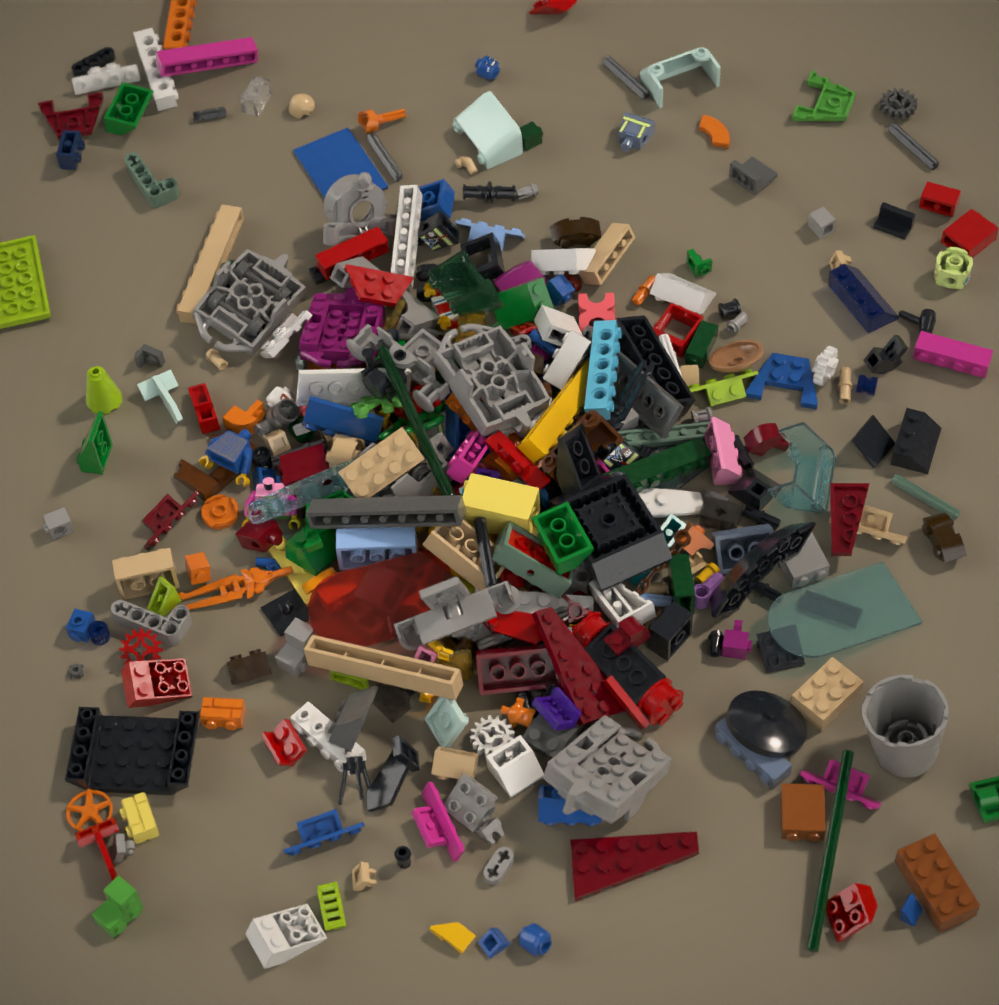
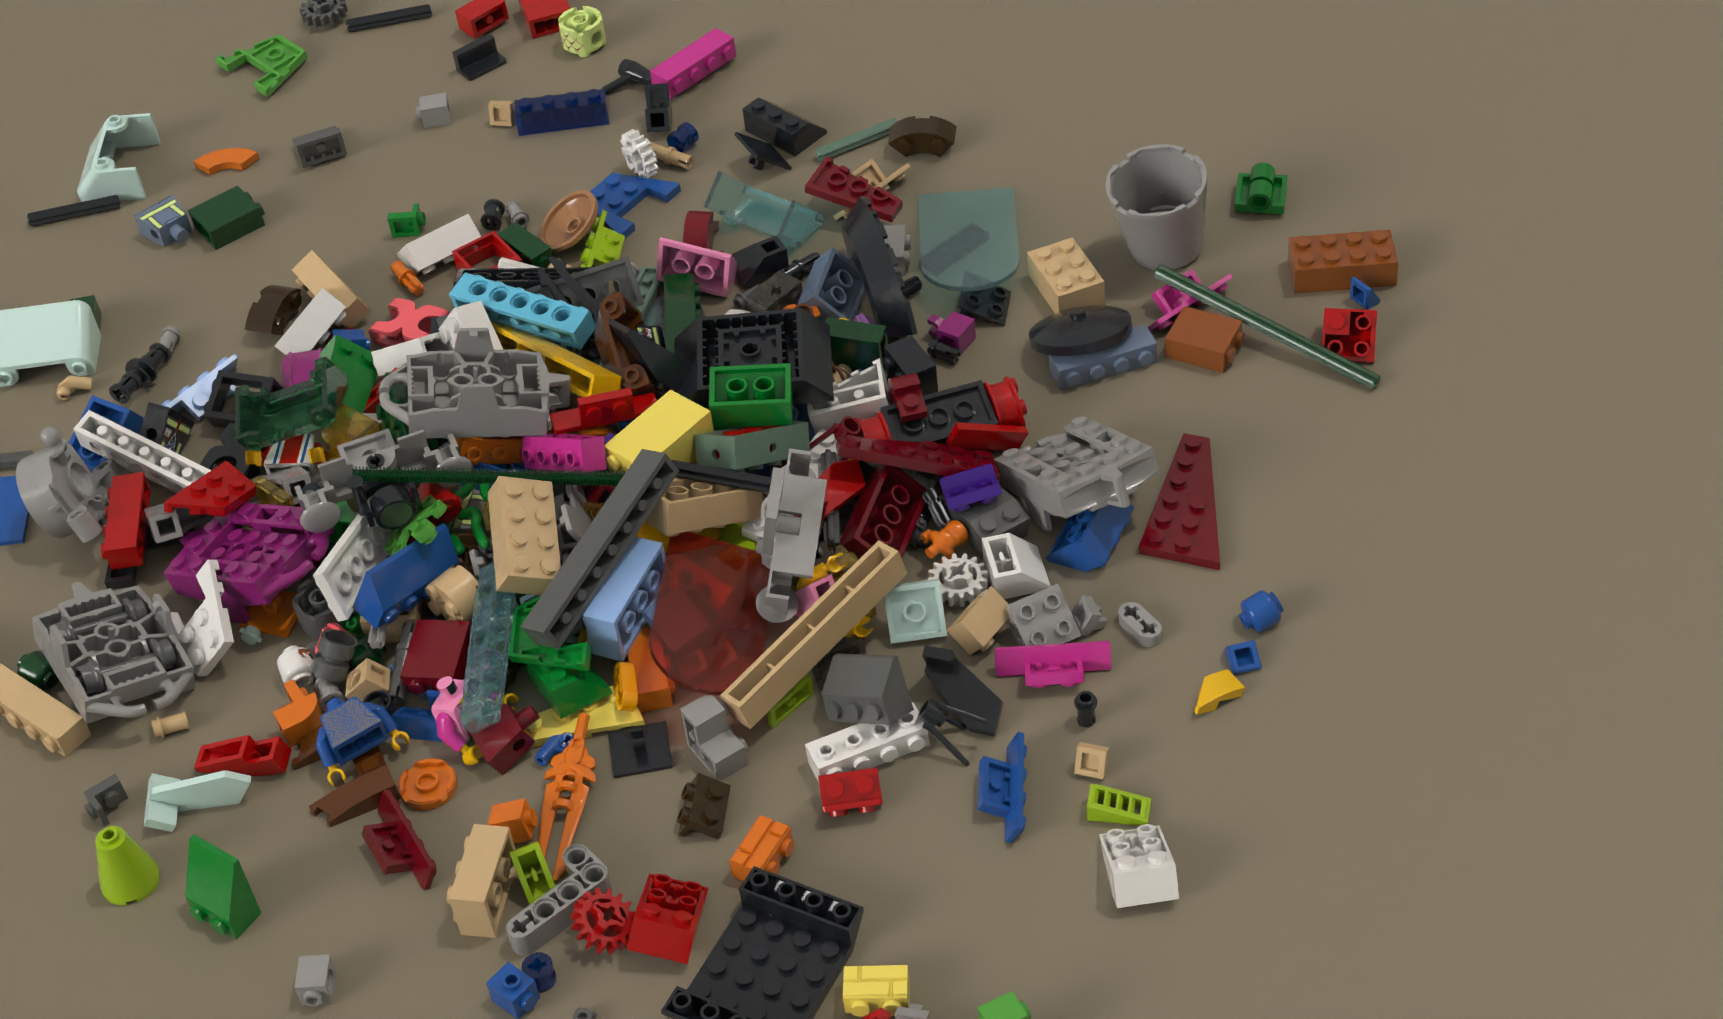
camera: 65 degrees left, 10 degrees down
(654, 161) = (227, 217): none -> dark green brick

